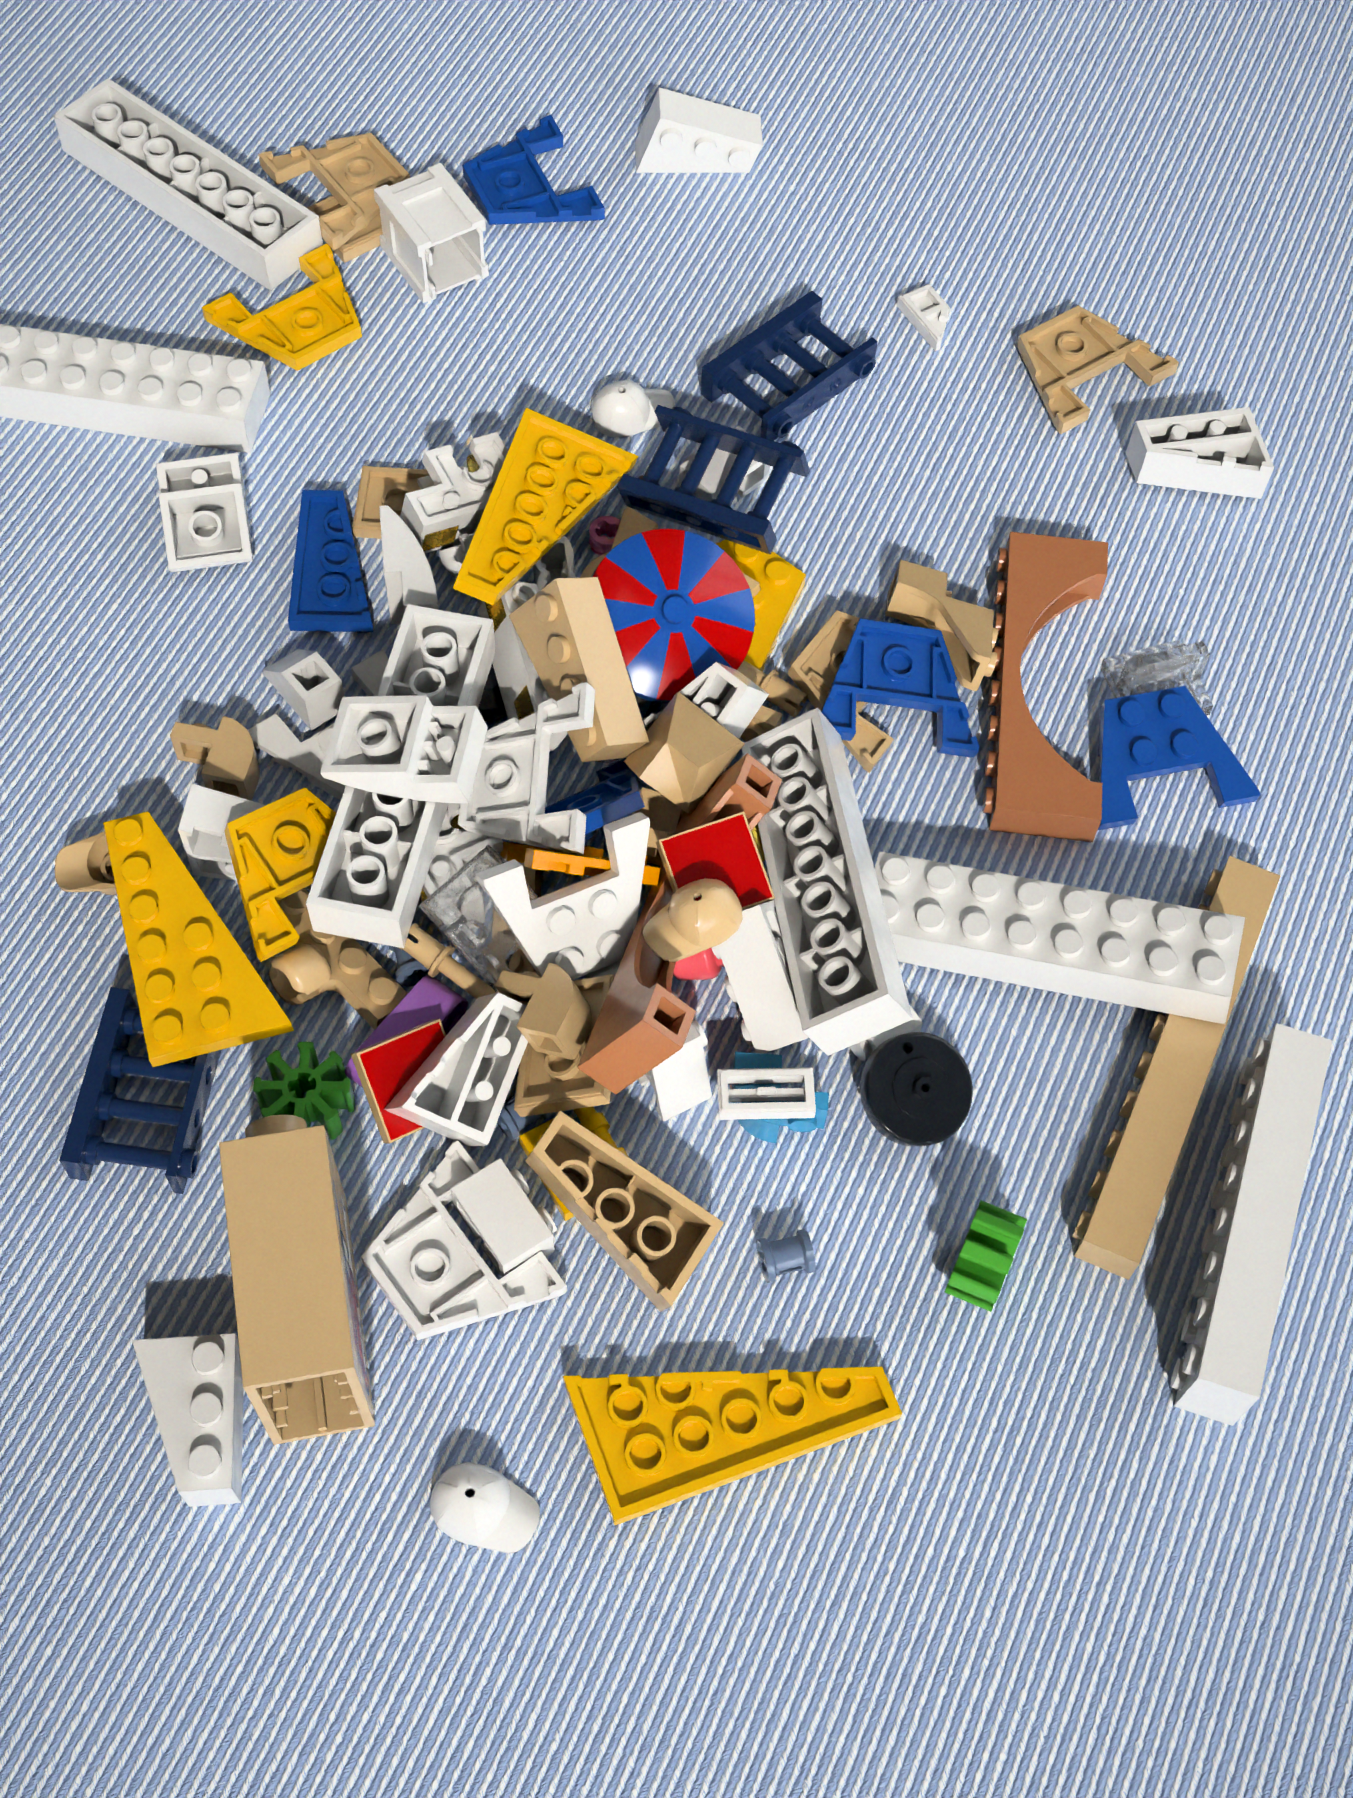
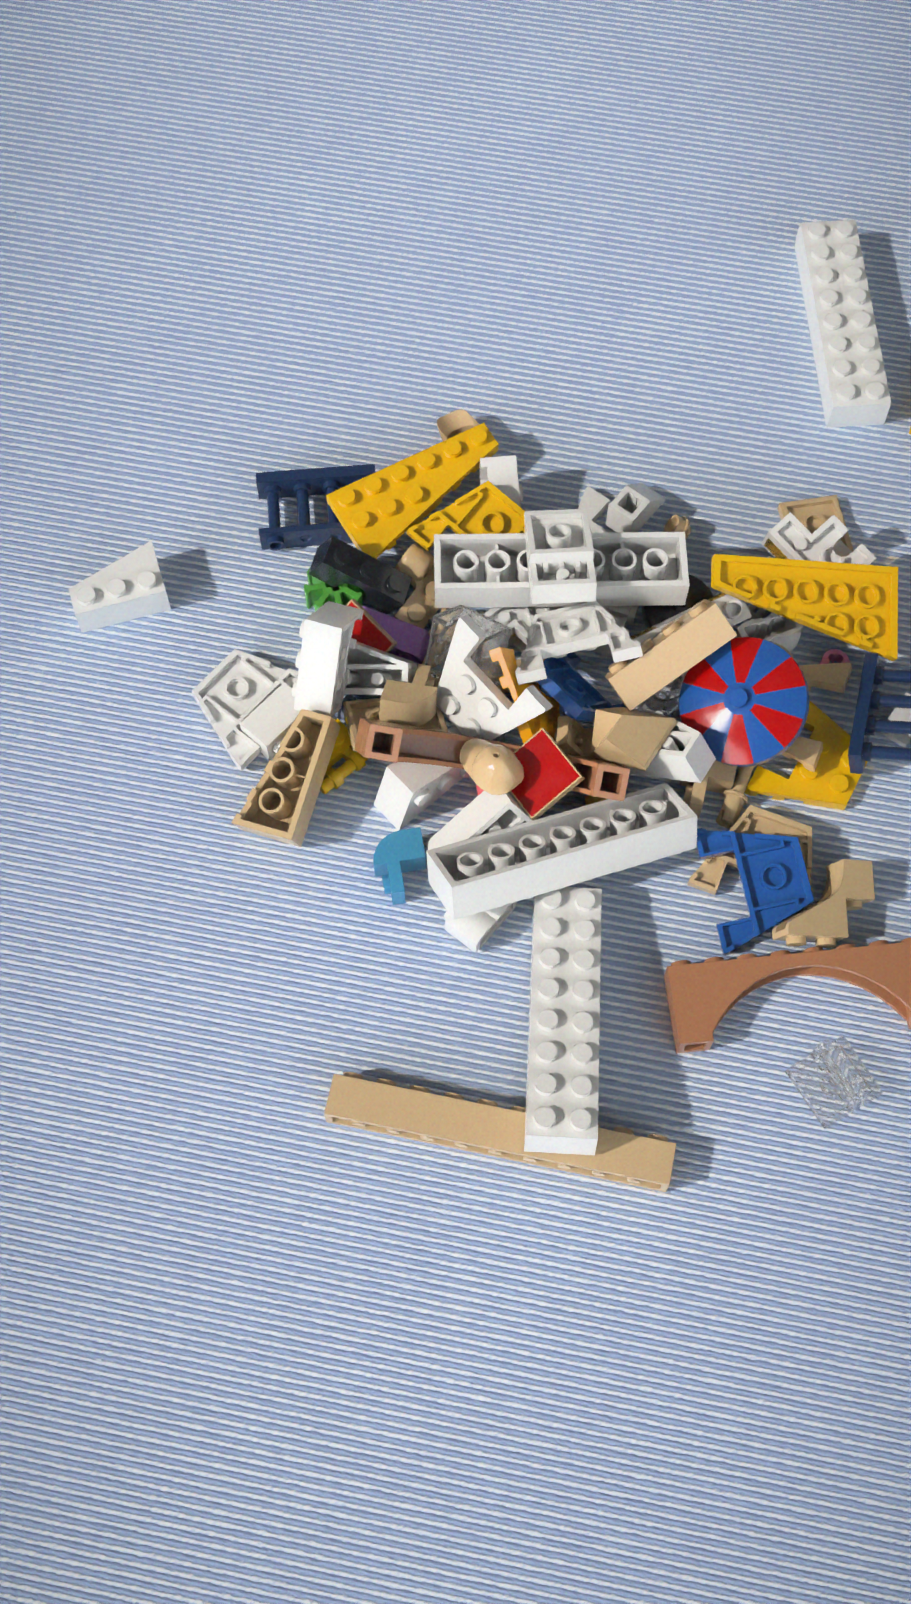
camera: 80 degrees right, 5 degrees up
(204, 512) = (756, 412): white slope -> none
(225, 753) = (566, 483): tan brick -> none
(290, 1051) = (344, 564): none -> black arch
(294, 1281) = (193, 603): tan brick -> none
(326, 570) = (732, 498): blue wing -> none
(344, 650) = (678, 524): none -> tan plate
(405, 567) = (735, 535): white slope -> none
(461, 1095) = (324, 658): none -> white wedge
(496, 1516) = (99, 761): white cap -> none
(701, 1430) = (164, 864): yellow wing -> none
(766, 1110) = (398, 874): white tile -> none
(786, 1255) = (289, 892): sand blue bush -> none
(916, 1089) = (426, 951): black wheel -> none
(986, 1255) = (308, 1011): bright green gear -> none
(1157, 737) = (777, 1081): blue wing -> none
(1252, 1226) = (374, 1188): white brick -> none

